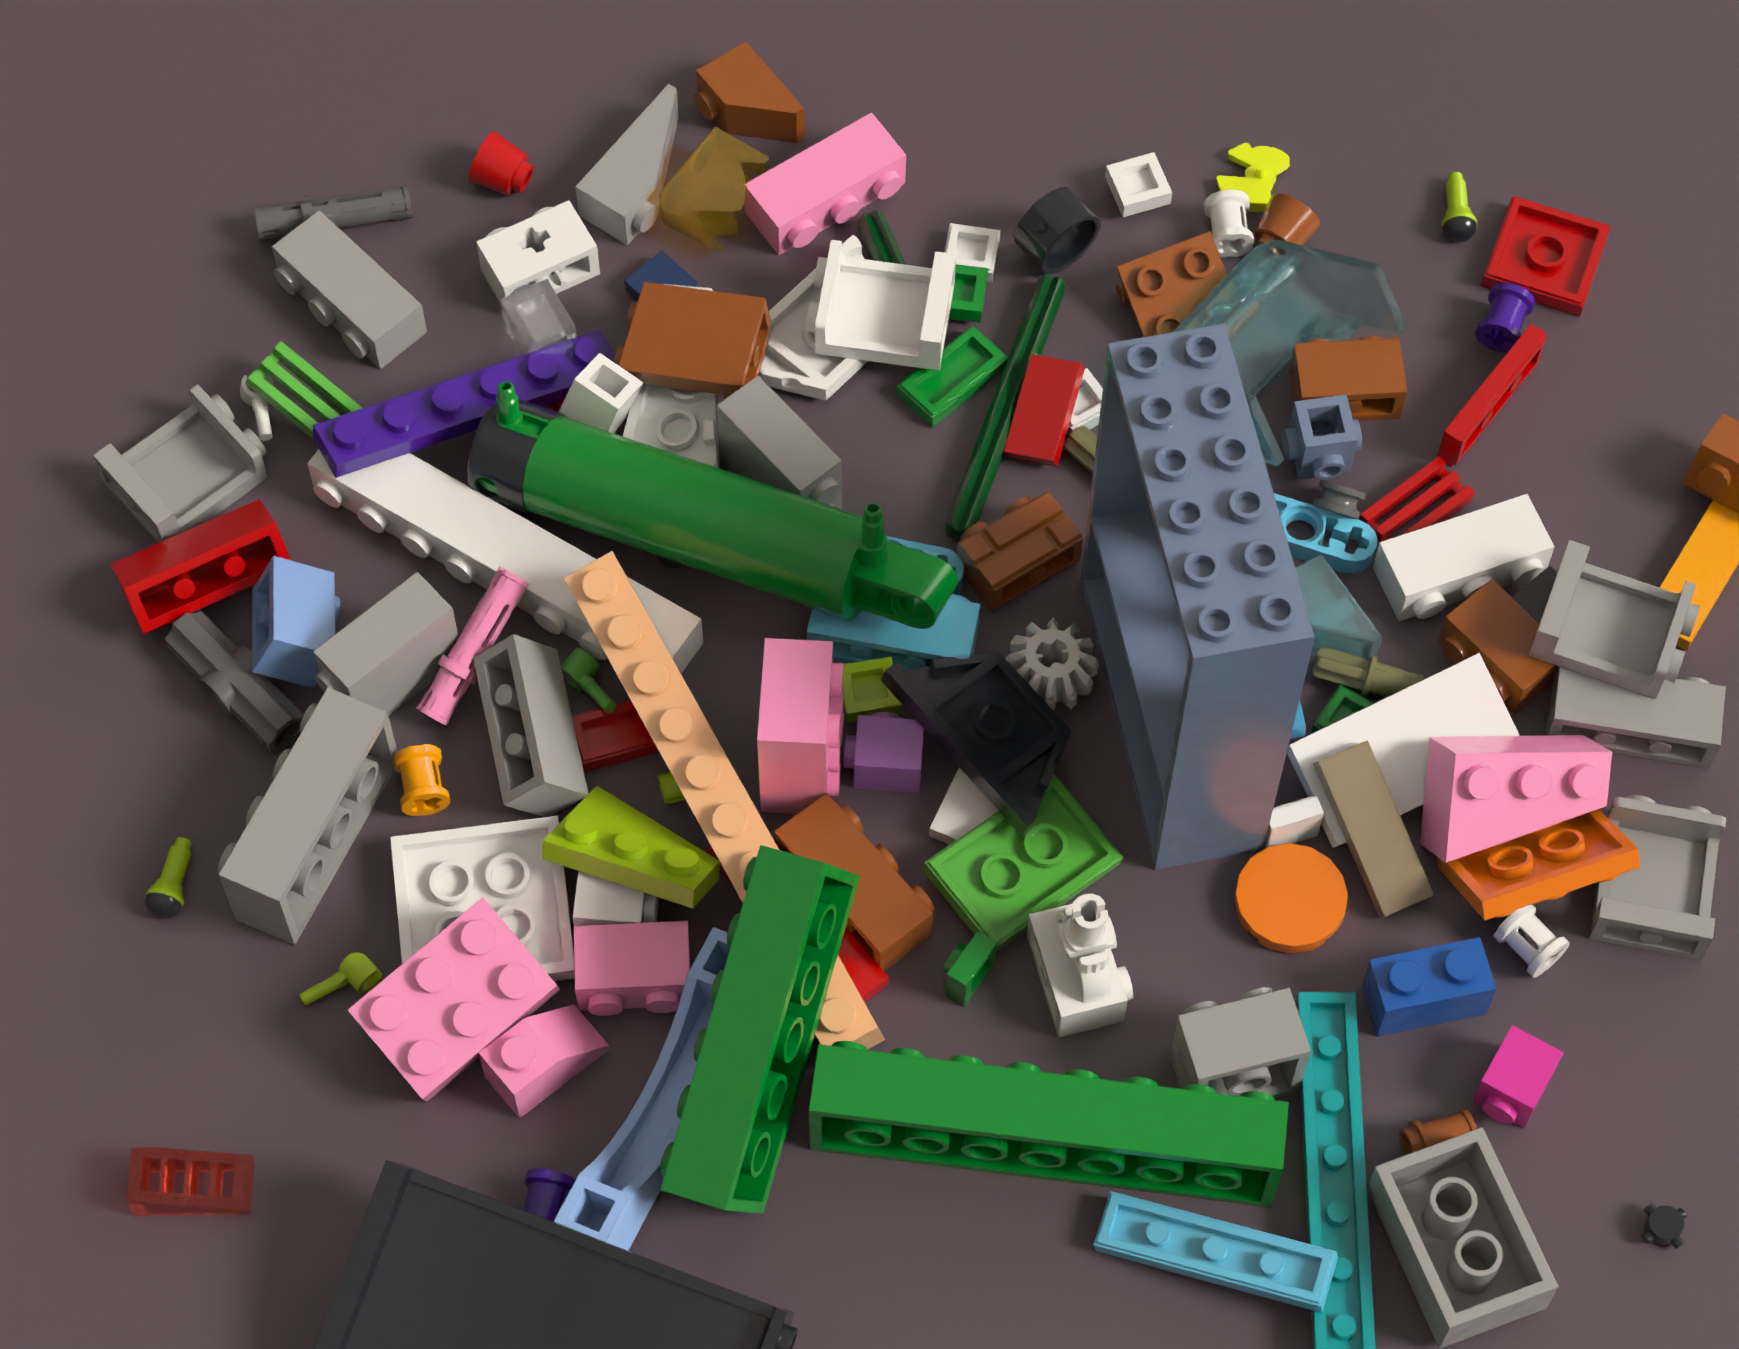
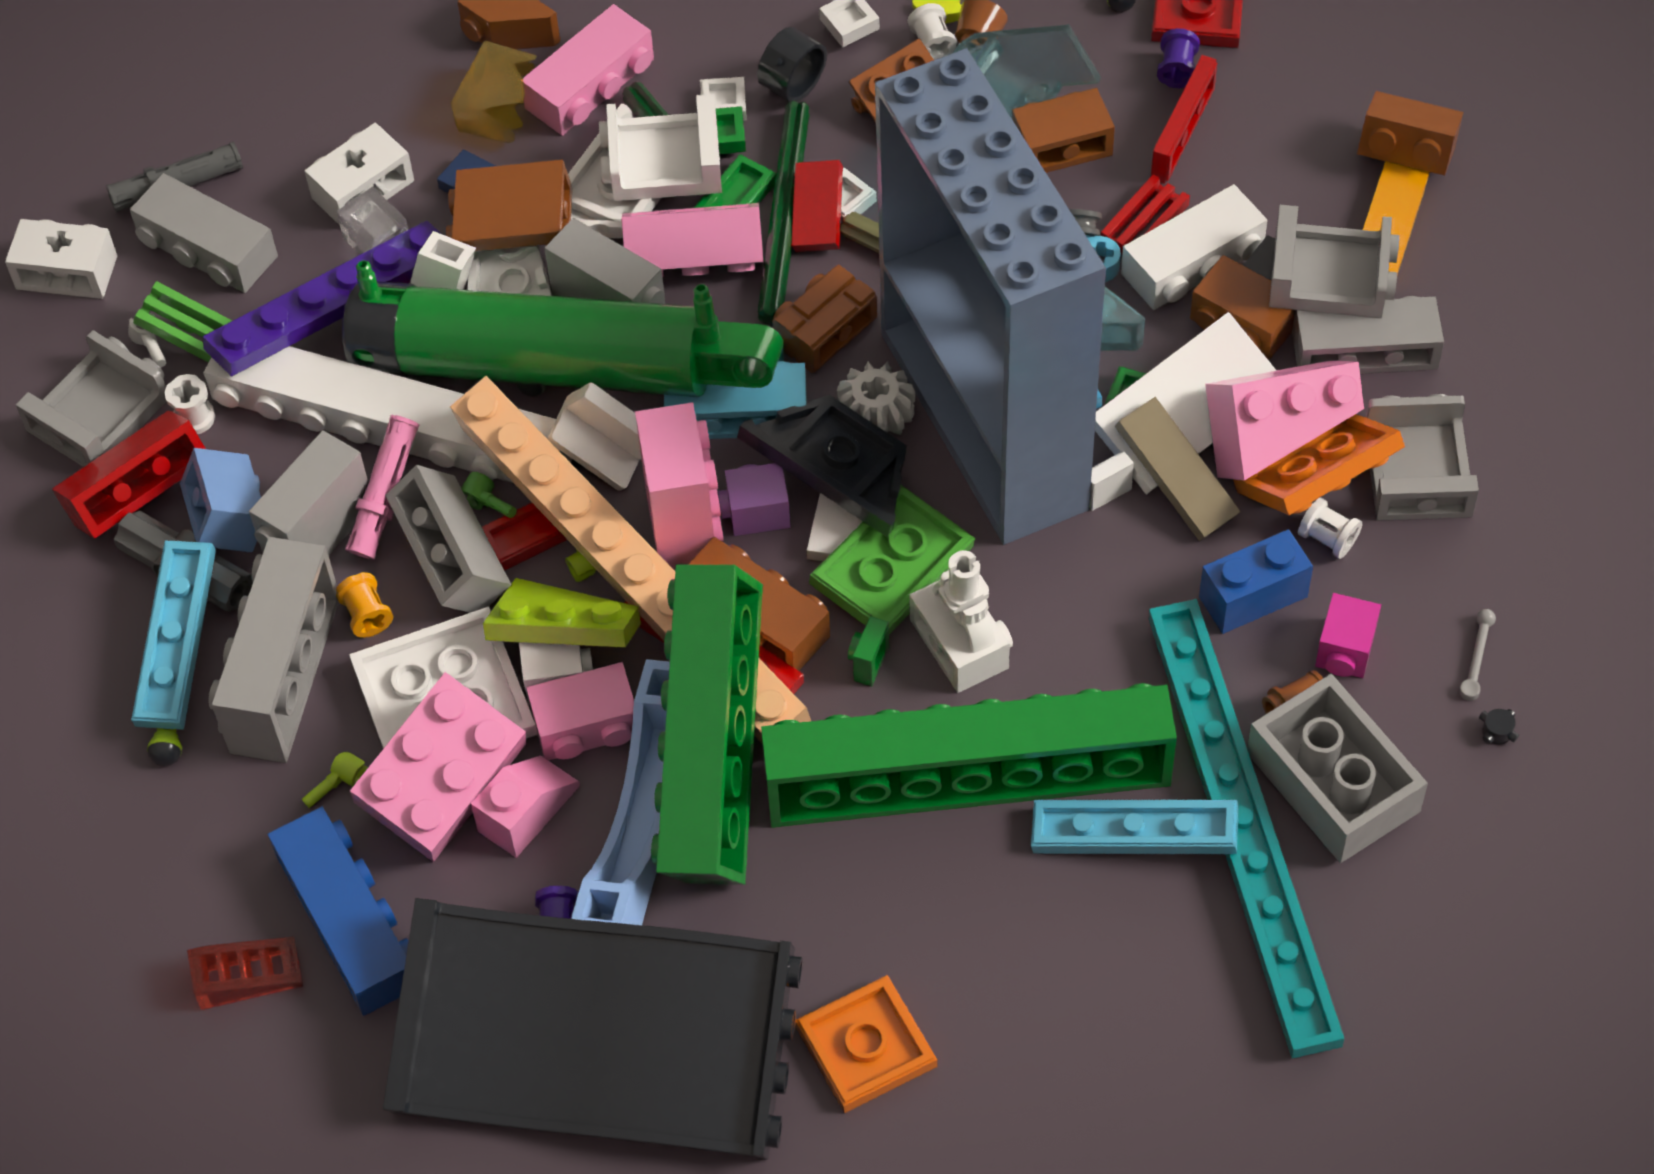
camera: 10 degrees left, 5 degrees down
(186, 285) = (61, 258): none -> white brick
(202, 771) = (173, 635): none -> medium azure tile
(286, 494) = (188, 398): none -> white bush
(312, 1135) = (342, 907): none -> blue brick
(500, 166) = (309, 111): red hat -> none
(626, 182) = (420, 101): light grey slope -> none
(725, 638) = (598, 435): none -> white panel
(865, 691) = (729, 451): lime plate -> none
(893, 421) = (696, 237): none -> bright pink brick
(1242, 1045) = (1115, 651): light grey brick -> none
(1290, 898) = (1122, 540): orange tile -> none
(1322, 437) = (1064, 169): sand blue brick -> none
(1362, 673) = (1135, 353): olive axle -> none
(1643, 1170) = (1470, 688): none -> light grey hinge

